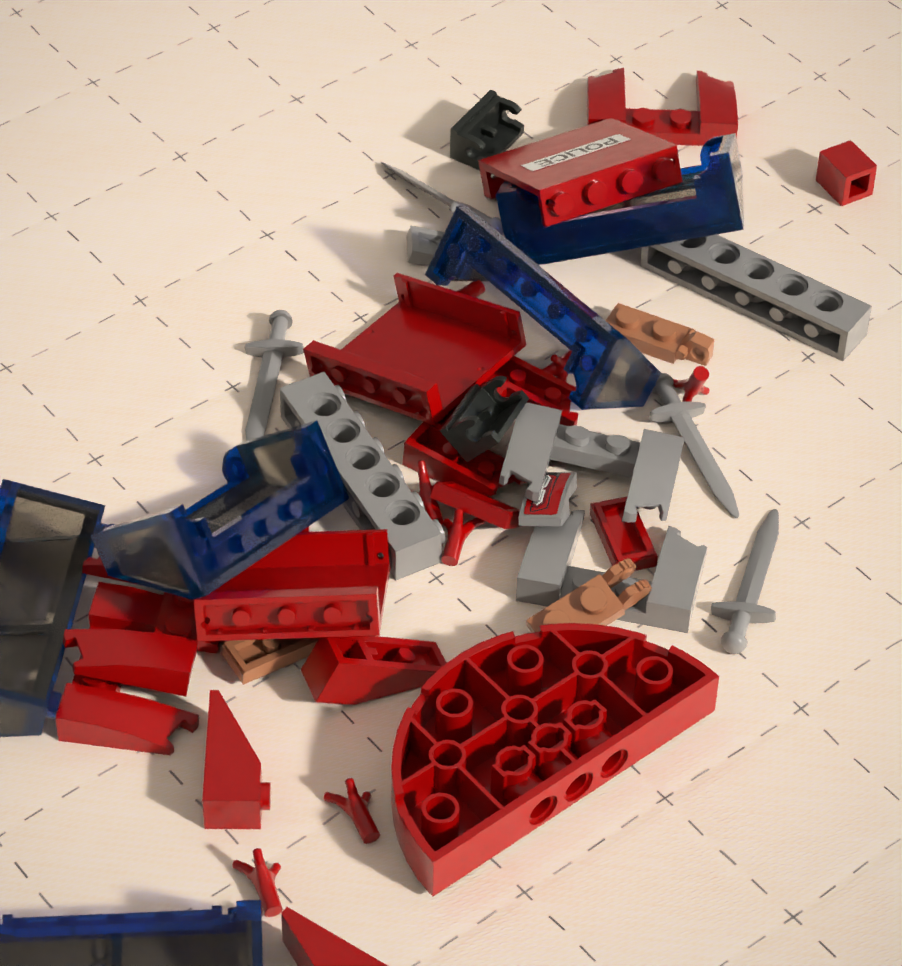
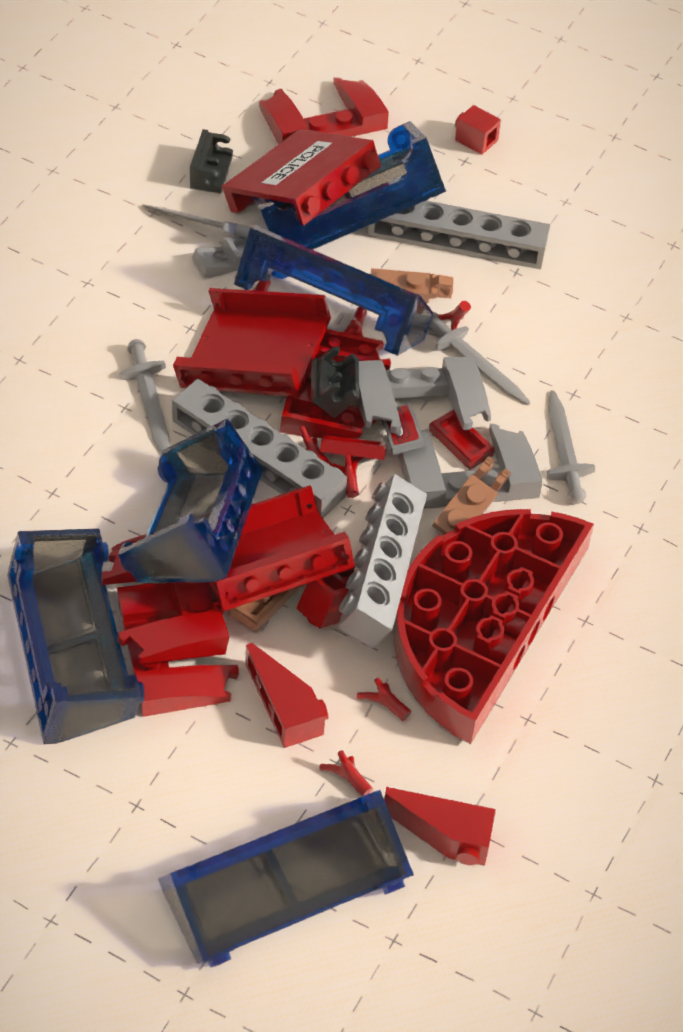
camera: 25 degrees left, 5 degrees up
(426, 642) = (382, 561): none -> light grey brick

